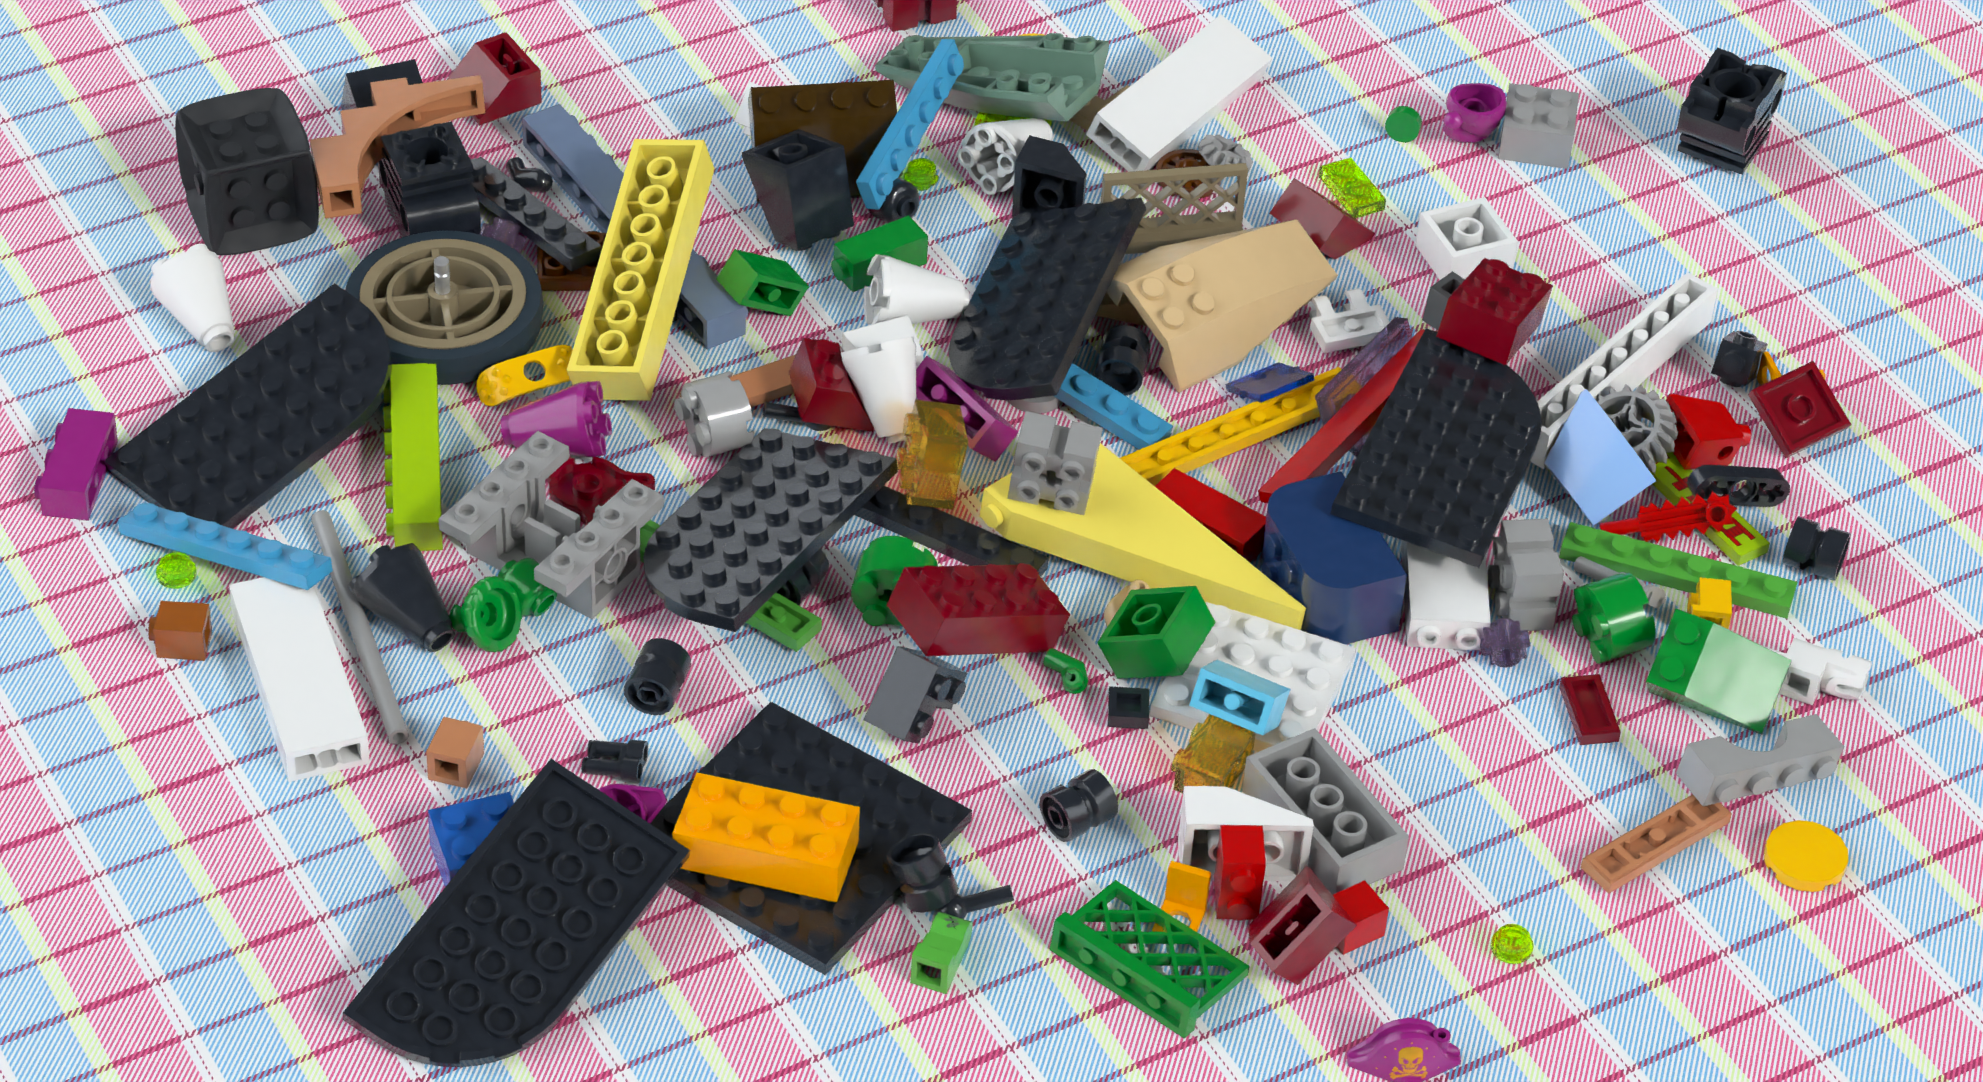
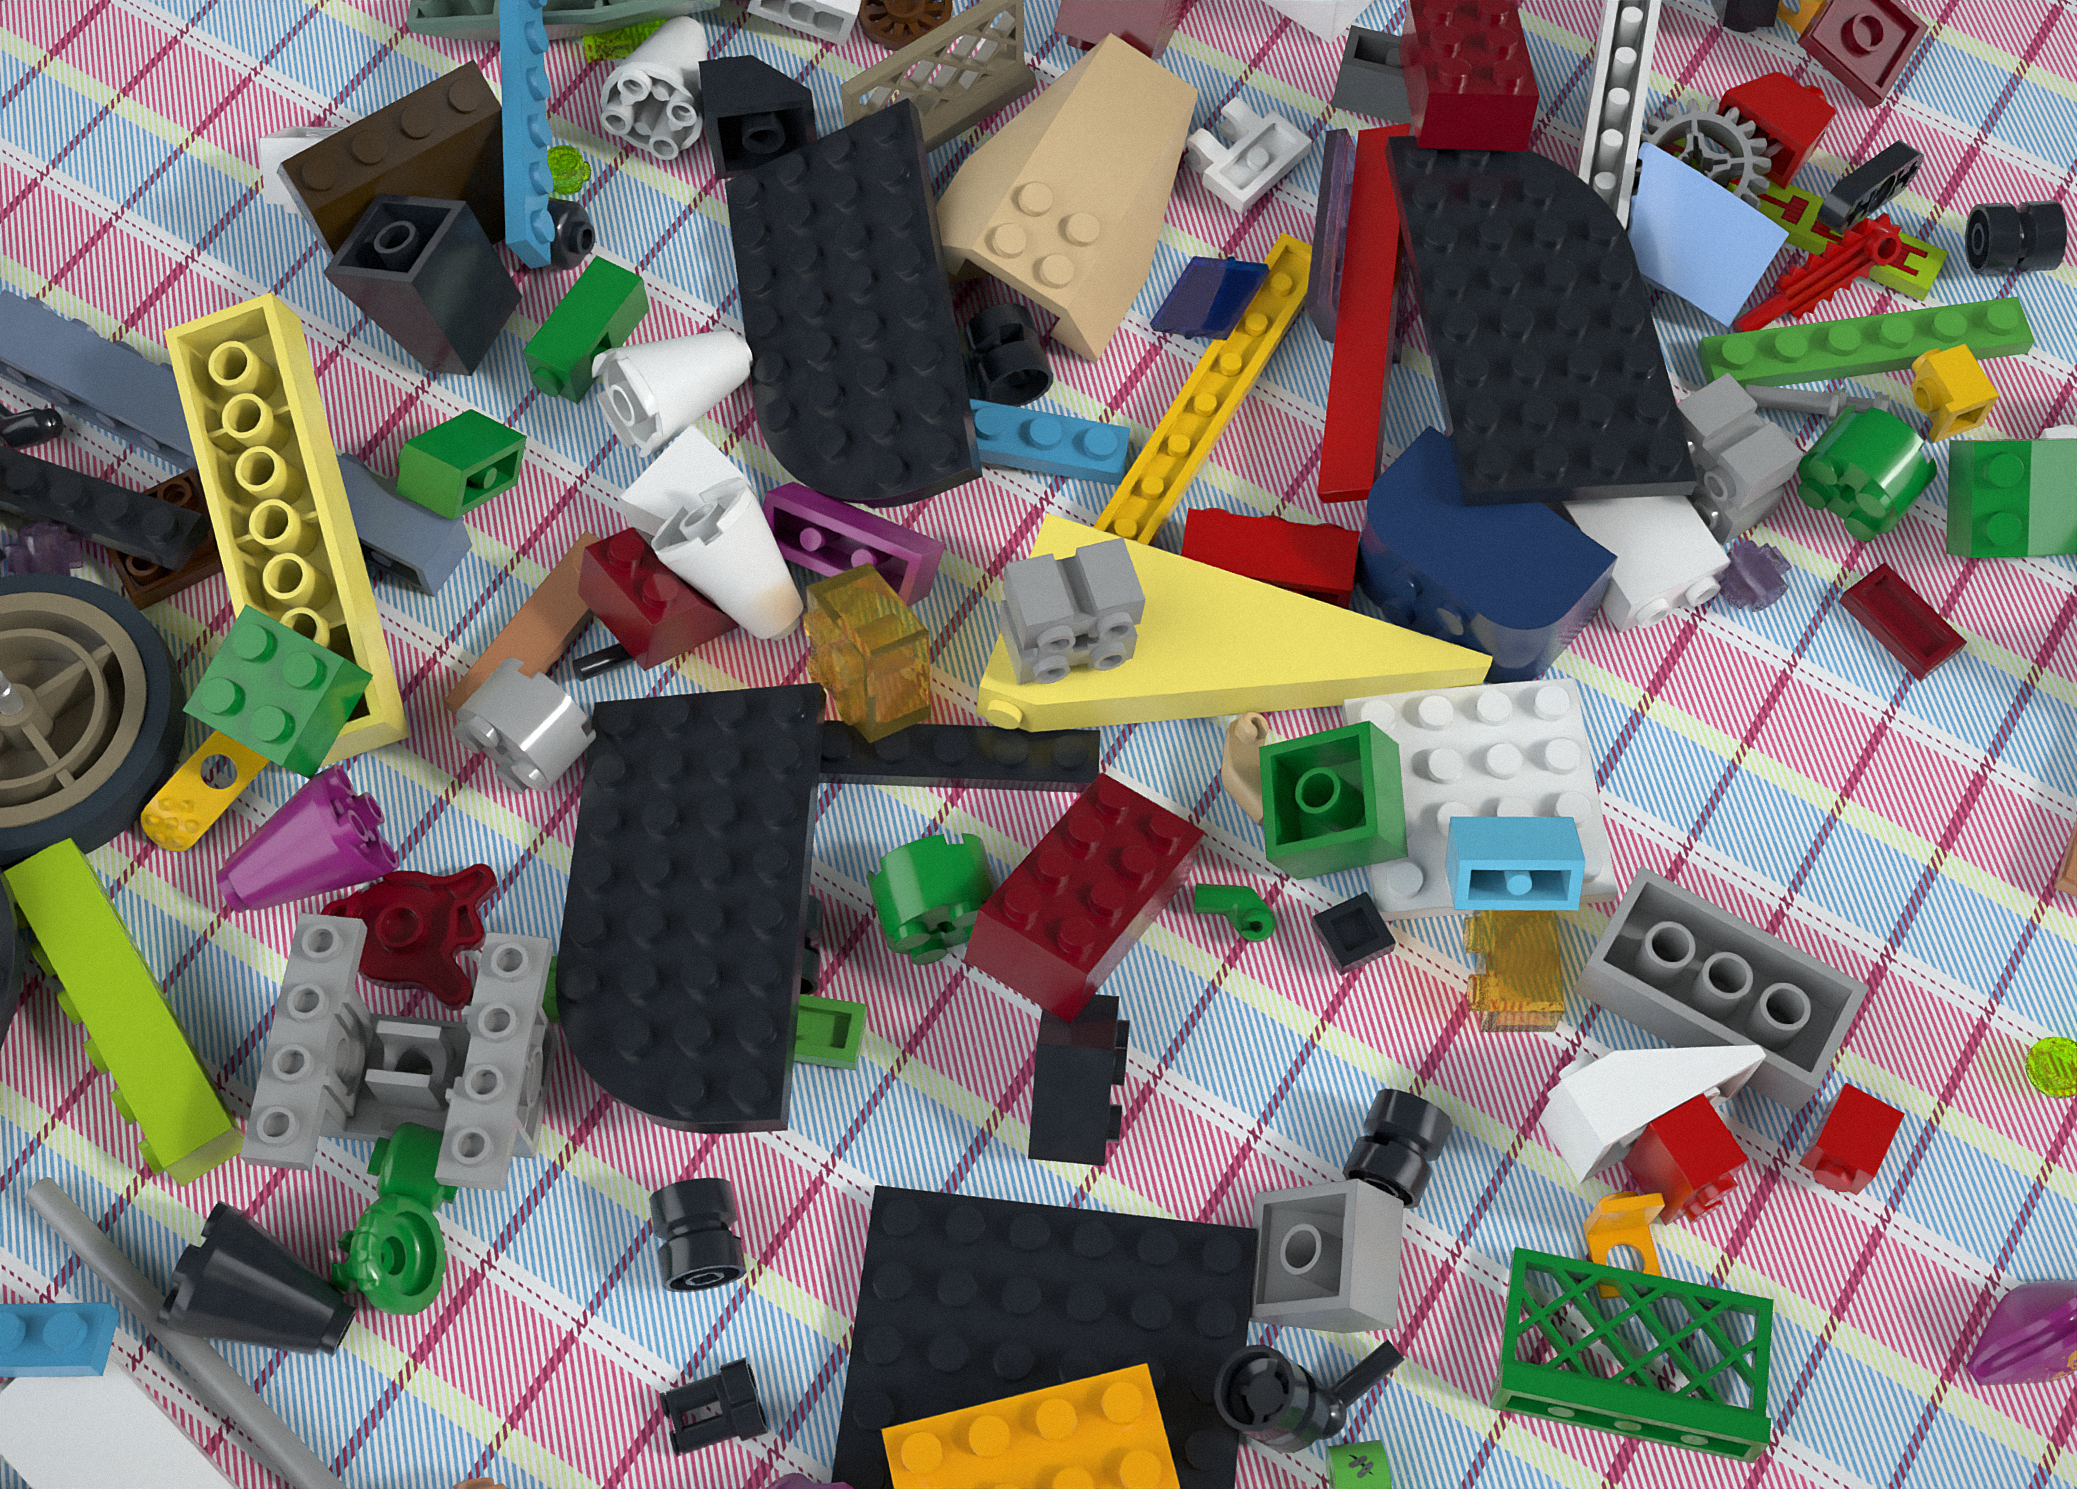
camera: 25 degrees left, 20 degrees up
(590, 330) = (278, 692): none -> green brick
(1004, 836) = (1327, 1257): none -> light grey slope
(1299, 927) = (1808, 1209): dark red slope -> none

